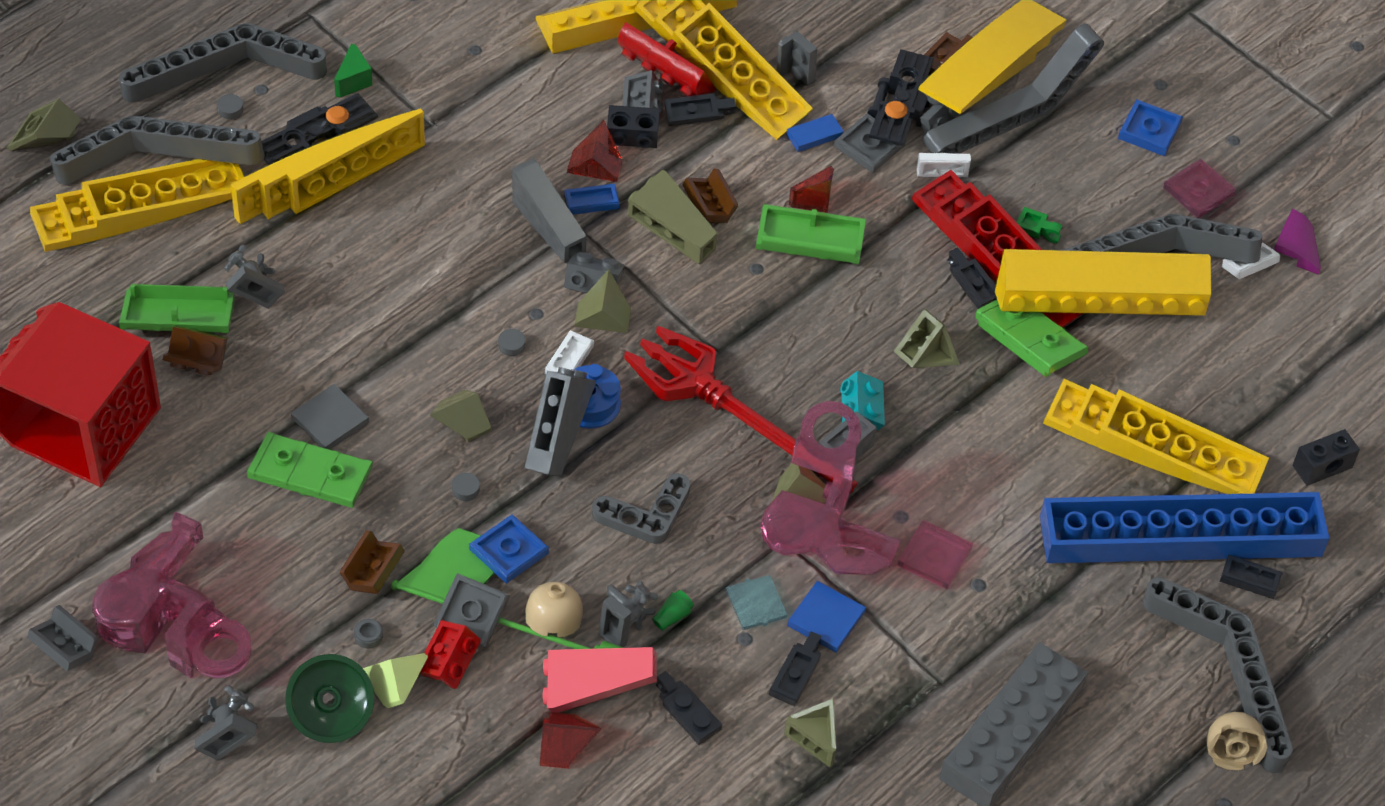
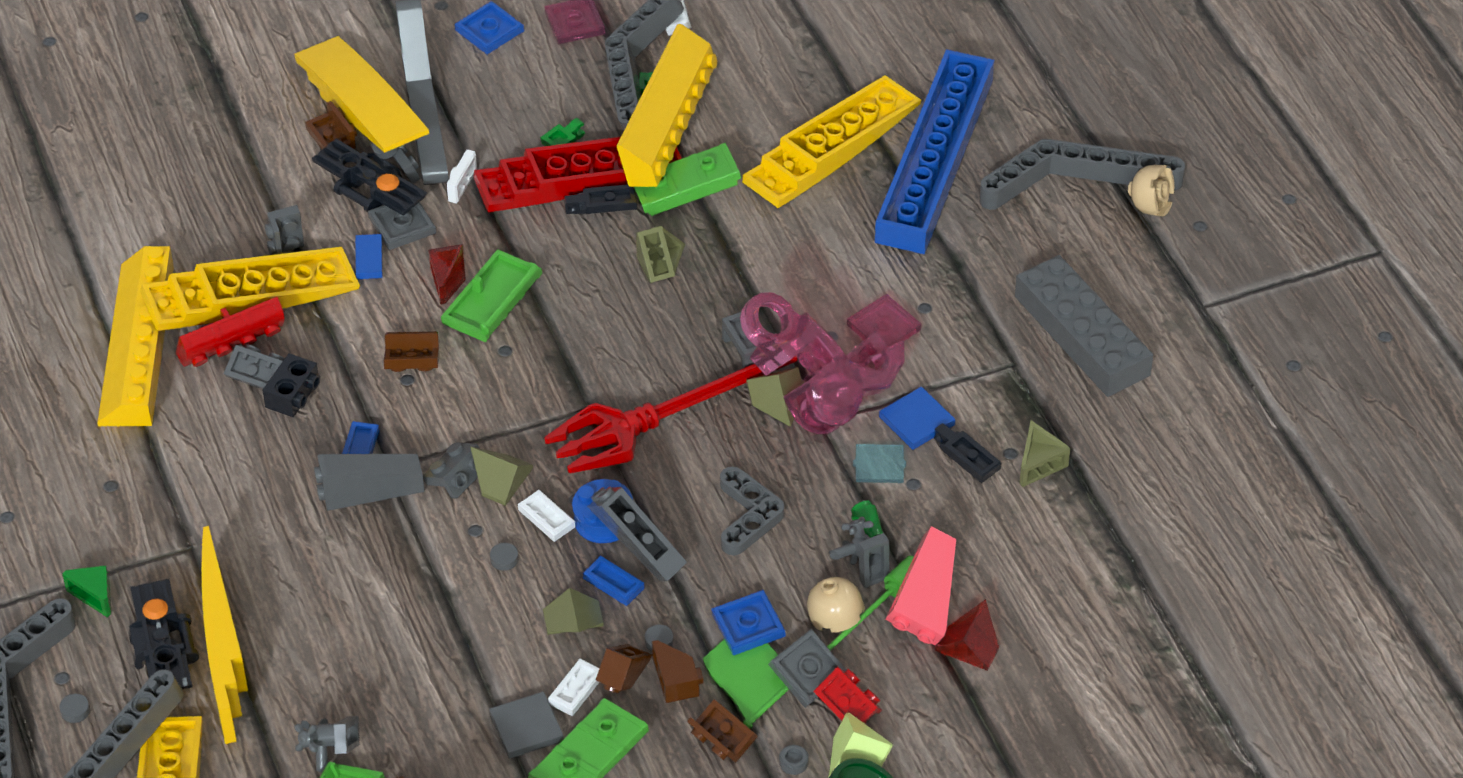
camera: 65 degrees left, 5 degrees down
(383, 439) = (575, 687): none -> white plate
(418, 466) = (622, 667): none -> reddish brown slope
(425, 508) = (676, 672): none -> reddish brown slope
(518, 433) = (613, 581): none -> blue tile
(597, 156) = (310, 426): clear red slope -> none
(673, 217) = (420, 387): olive slope -> none
(687, 709) = (981, 543): black hinge -> none
(697, 109) = (295, 330): black hinge -> none
(865, 396) = (698, 320): teal bracket -> none
(1250, 576) = (995, 129): black plate -> none
(1326, 457) = (902, 40): black brick -> none

